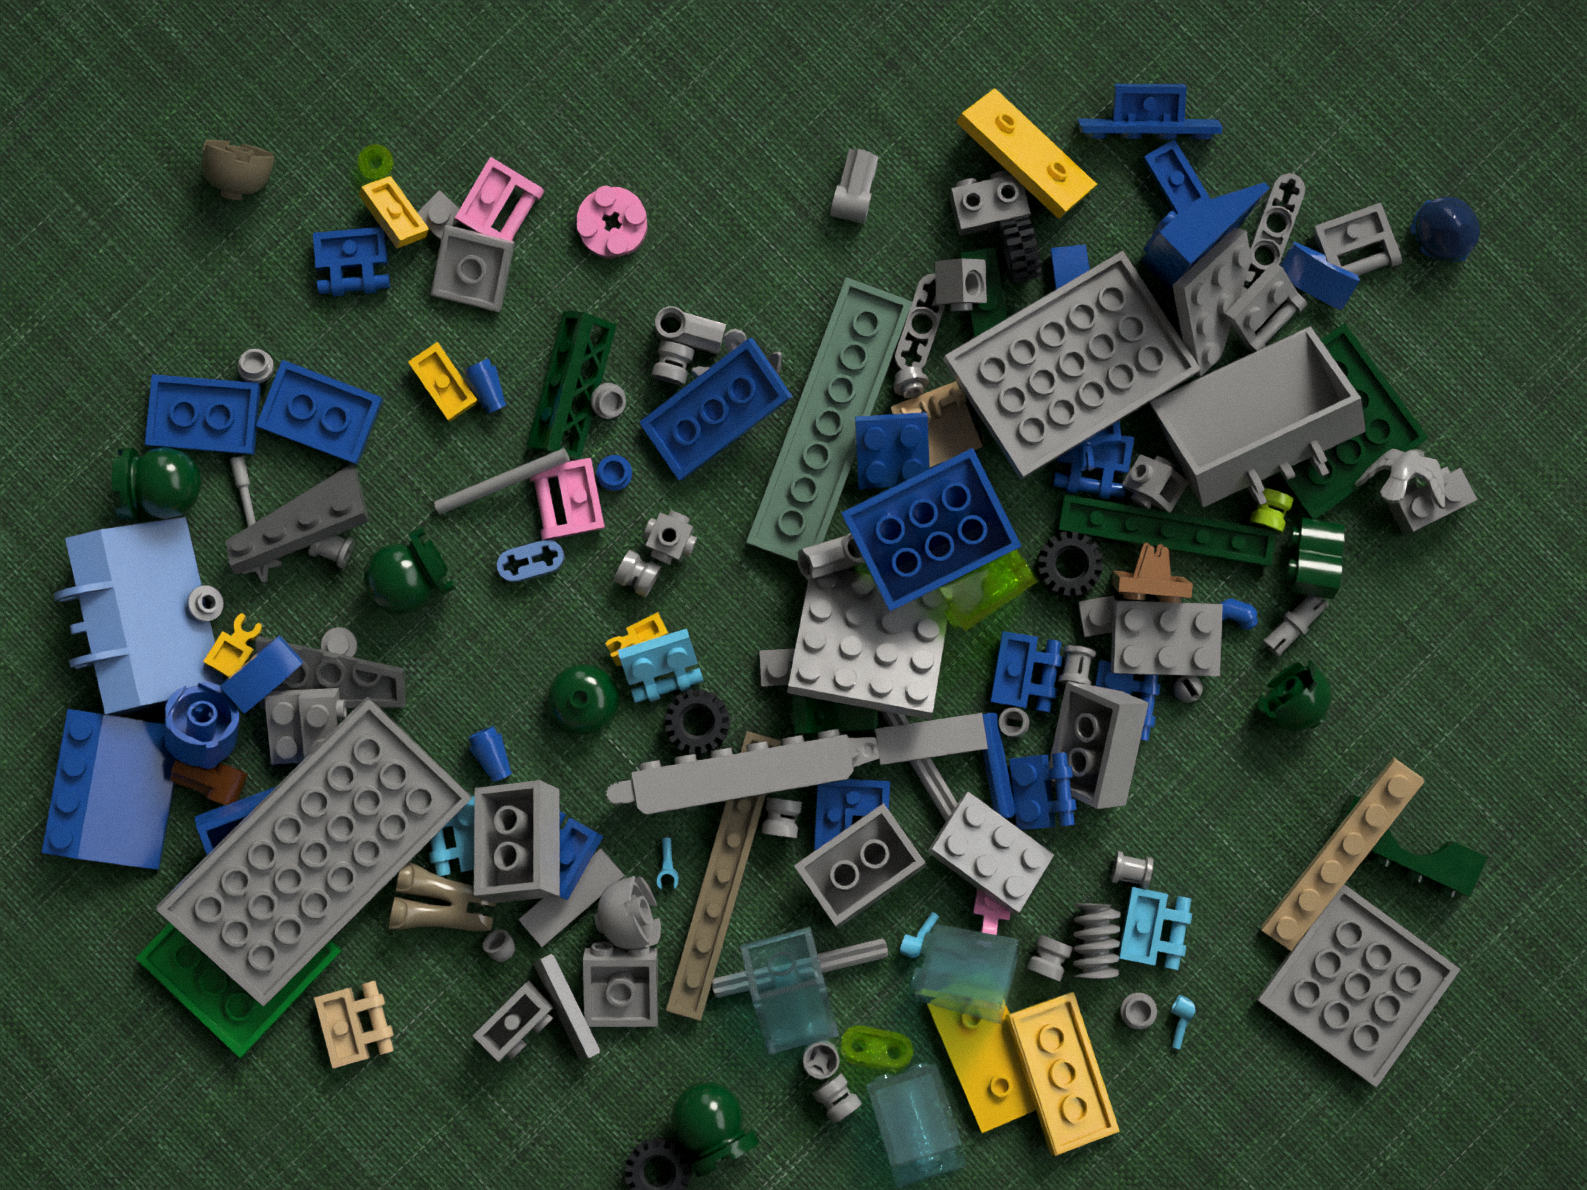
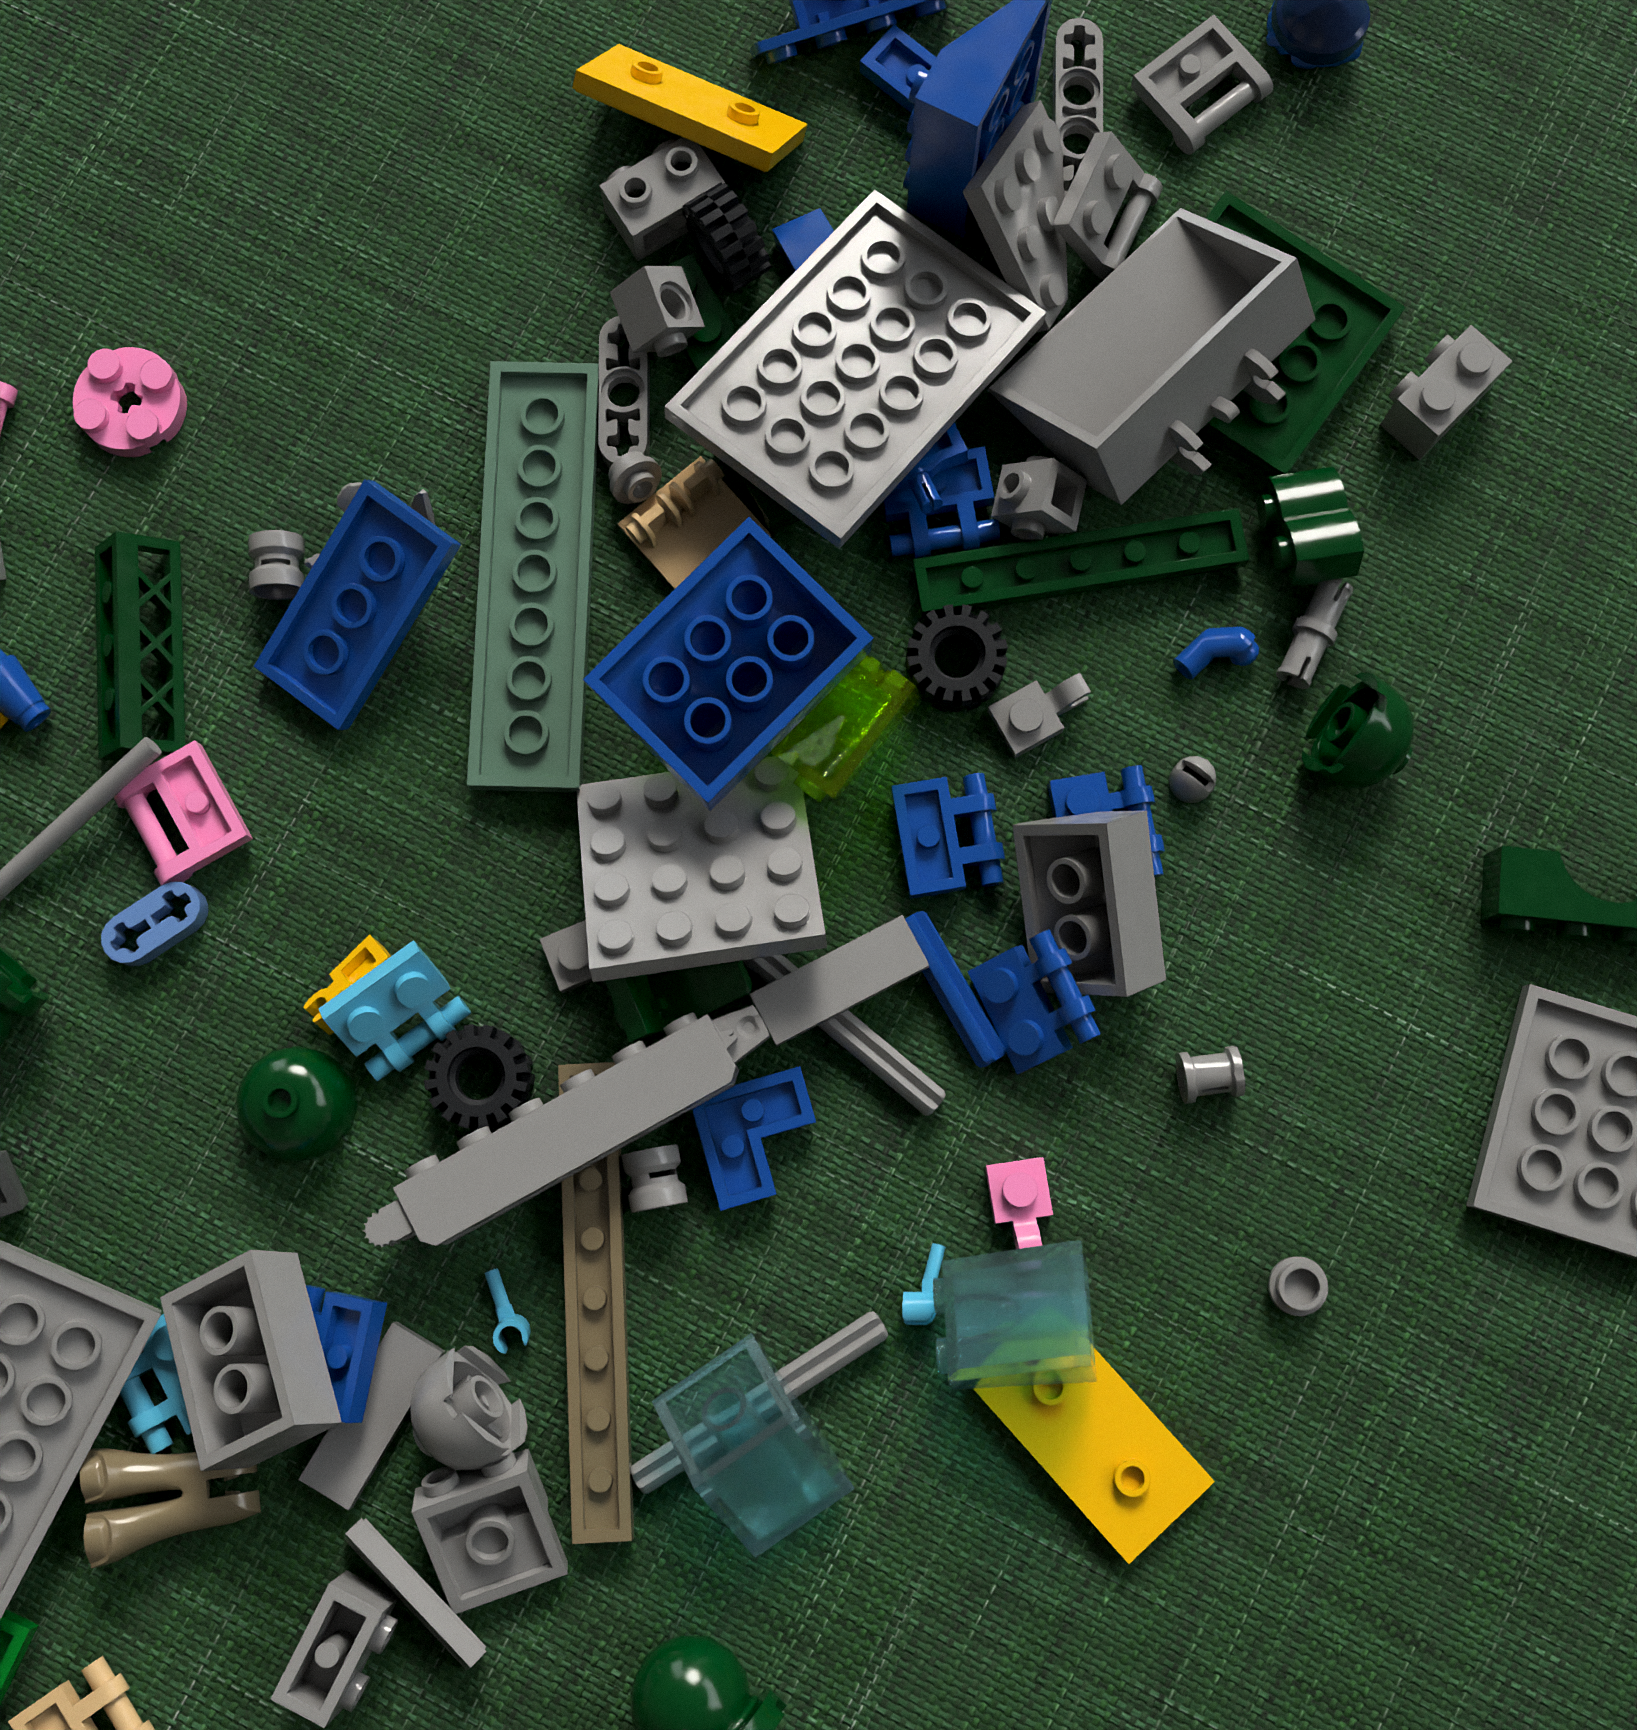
camera: 15 degrees left, 5 degrees down
(490, 752) = (177, 1233): blue cone -> none
(499, 945) = (281, 1532): light grey hinge -> none
(608, 400) = (198, 651): light grey plate -> none
(614, 473) = (241, 753): blue plate -> none
(637, 573) = (318, 887): light grey wheel -> none
(675, 550) = (364, 827): light grey brick -> none
(694, 330) = (297, 509): light grey piece -> none
(821, 1064) = (843, 1544): light grey wheel -> none
(828, 557) = (596, 763): light grey piece -> none
(833, 1090) = (872, 1584): light grey wheel -> none
(853, 194) = (465, 249): light grey piece -> none
(860, 865) = (797, 1211): light grey slope -> none
(876, 1044) = (918, 1481): clear neon green plate -> none
(891, 448) = (630, 571): blue plate -> none
(916, 1124) = (1020, 1588): clear light blue slope -> none
(990, 853) = (990, 1122): light grey plate -> none
(1017, 715) = (951, 903): light grey hinge -> none
(1050, 957) = (1135, 1251): light grey wheel -> none
(1062, 1073) = (1219, 1427): yellow plate -> none
(1077, 664) = (1018, 796): light grey bush -> none
(1096, 941) = (1197, 1201): light grey piece -> none
(1144, 925) = (1260, 1154): medium azure plate -> none
(1152, 577) = (1085, 627): medium nougat plate -> none
(1166, 638) = (1136, 712): light grey plate -> none
(1185, 1010) = (1370, 1260): medium azure hand -> none
(1272, 513) = (1221, 483): lime wheel -> none
(1318, 277) = (1168, 139): blue slope -> none
(1342, 854) = (1517, 938): tan plate -> none
(1403, 468) = (1392, 351): light grey animal -> none

